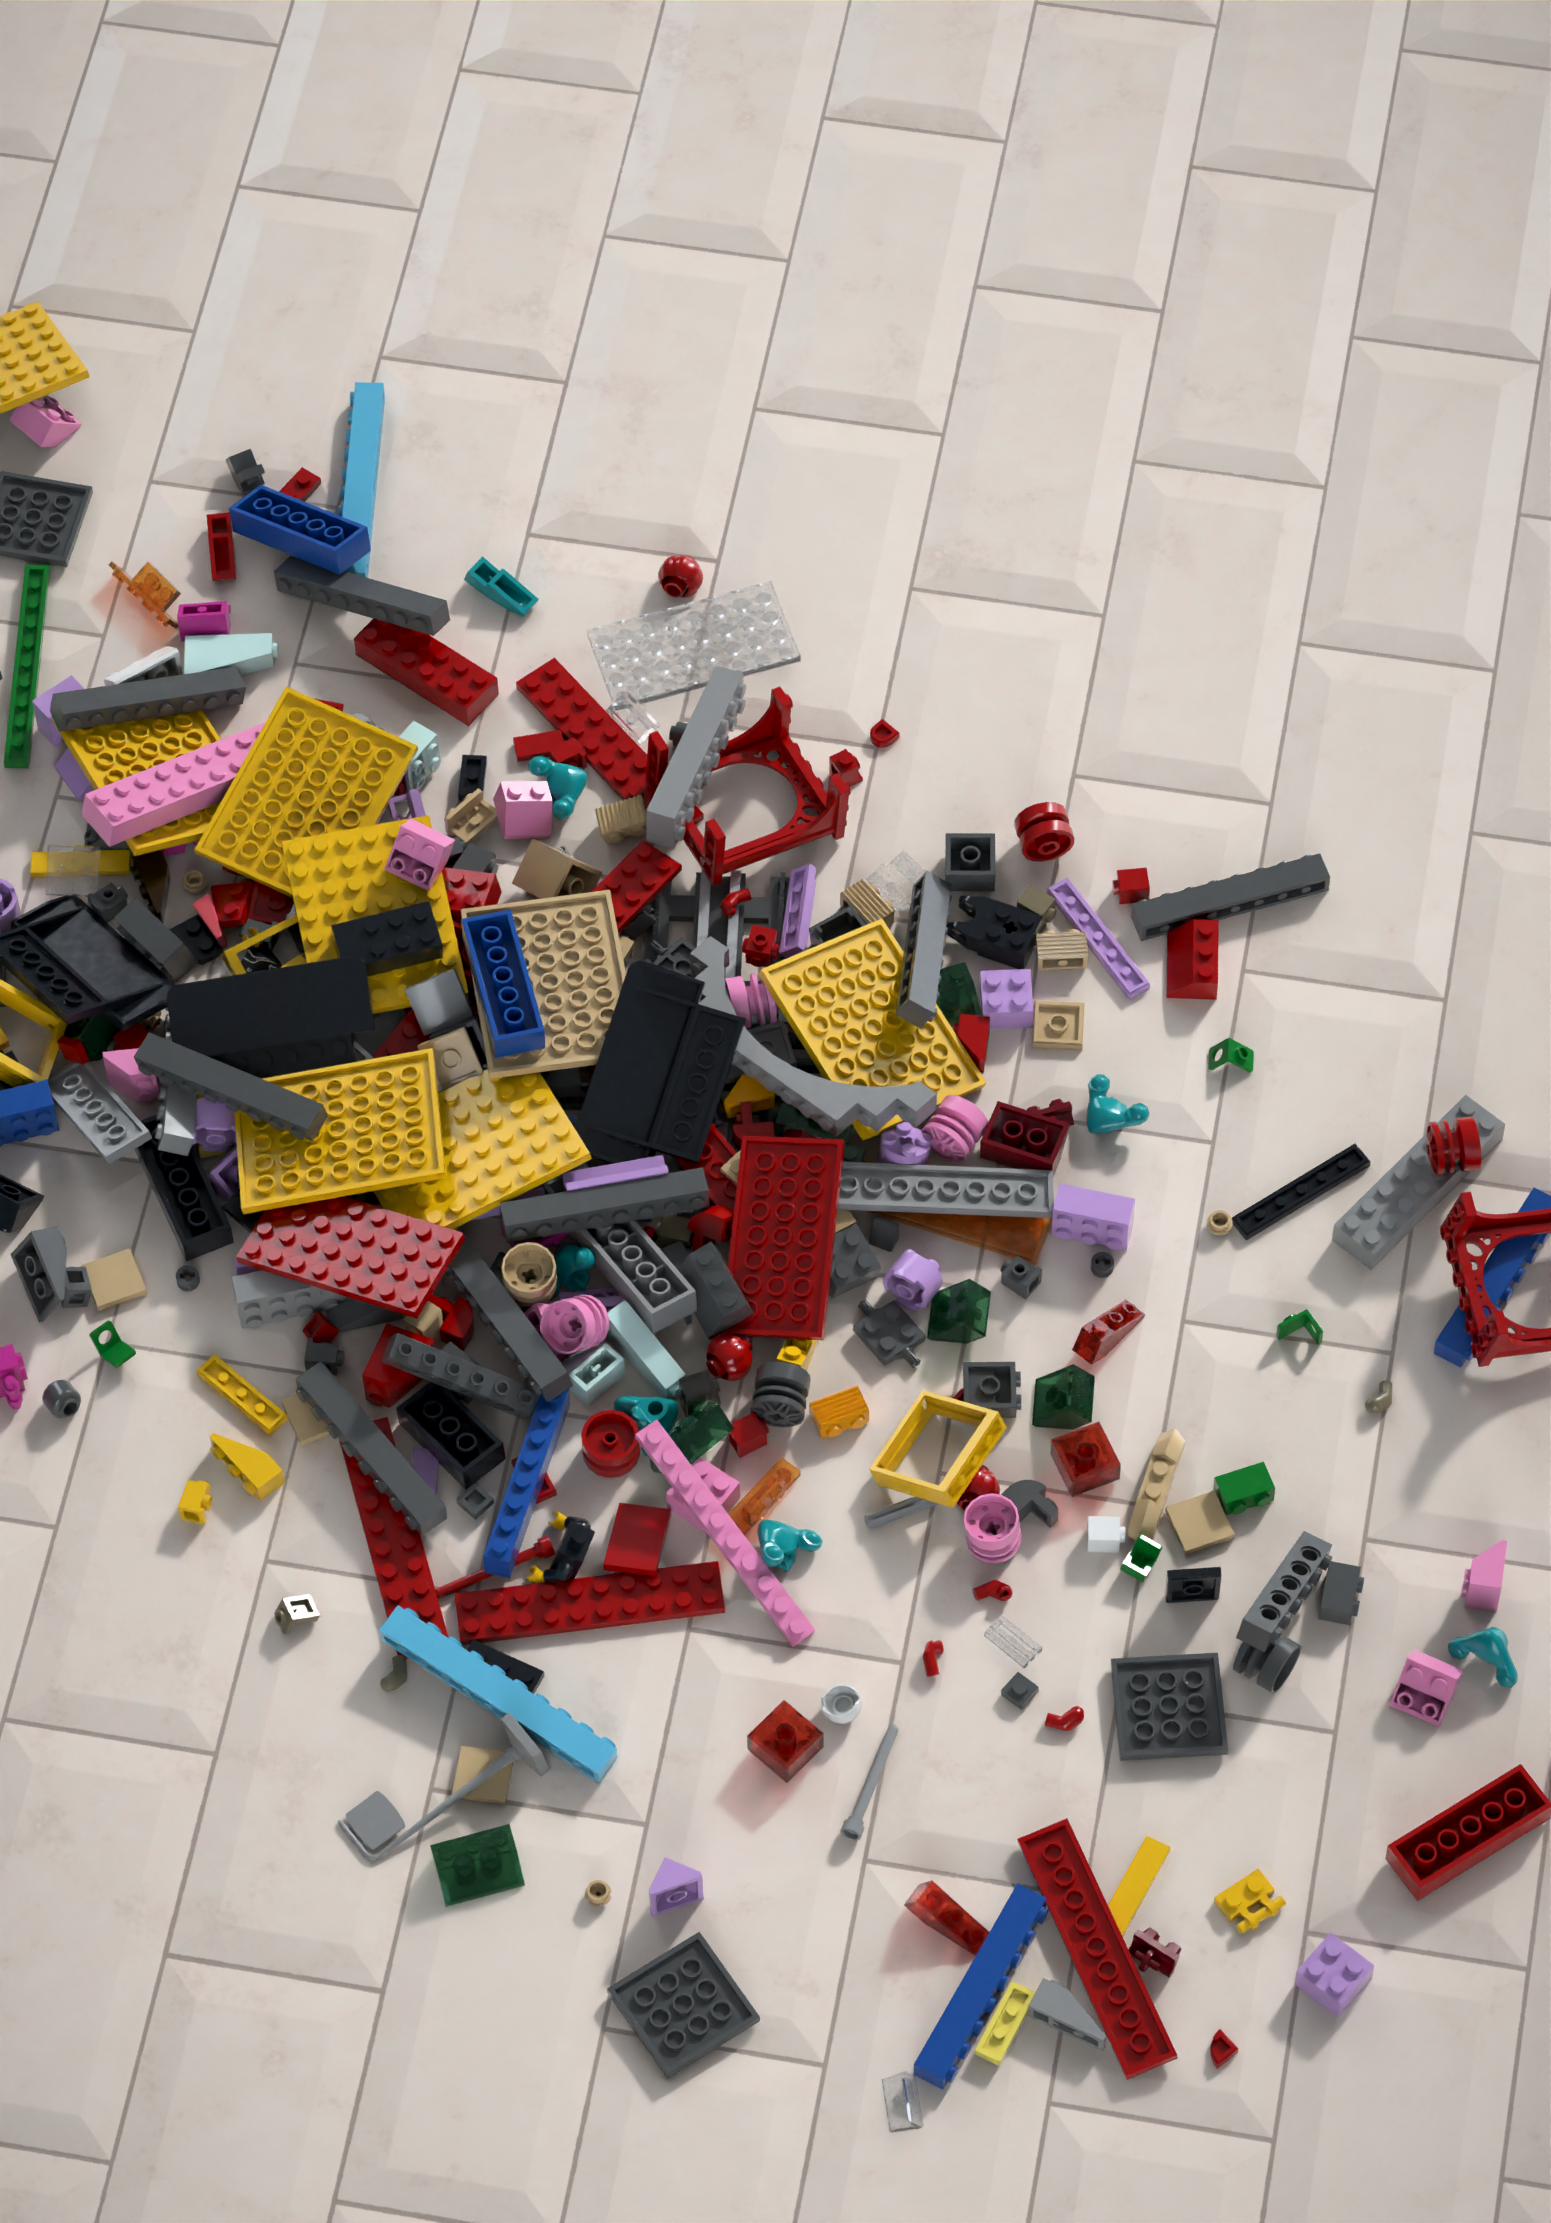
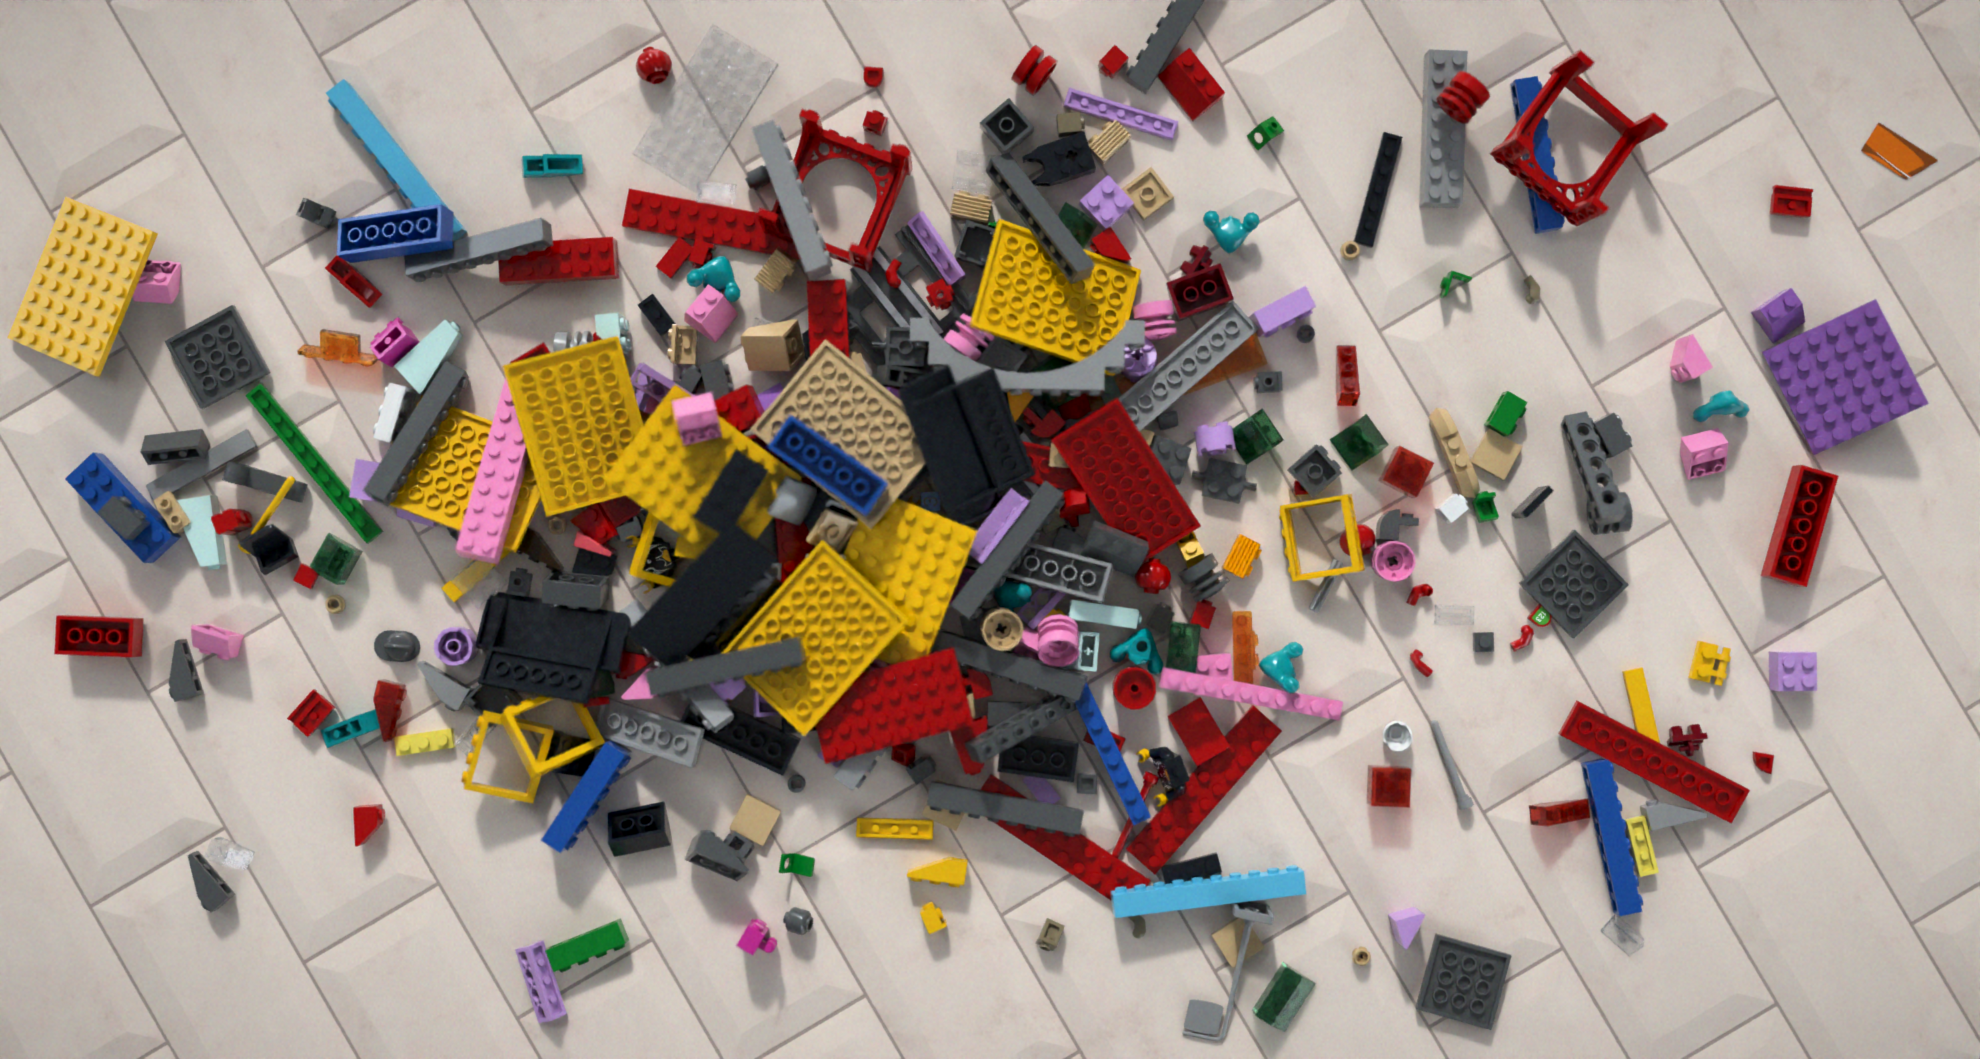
camera: 45 degrees left, 30 degrees up
(301, 485) = (359, 197): red plate -> none
(1103, 1713) = (1540, 617): none -> tile

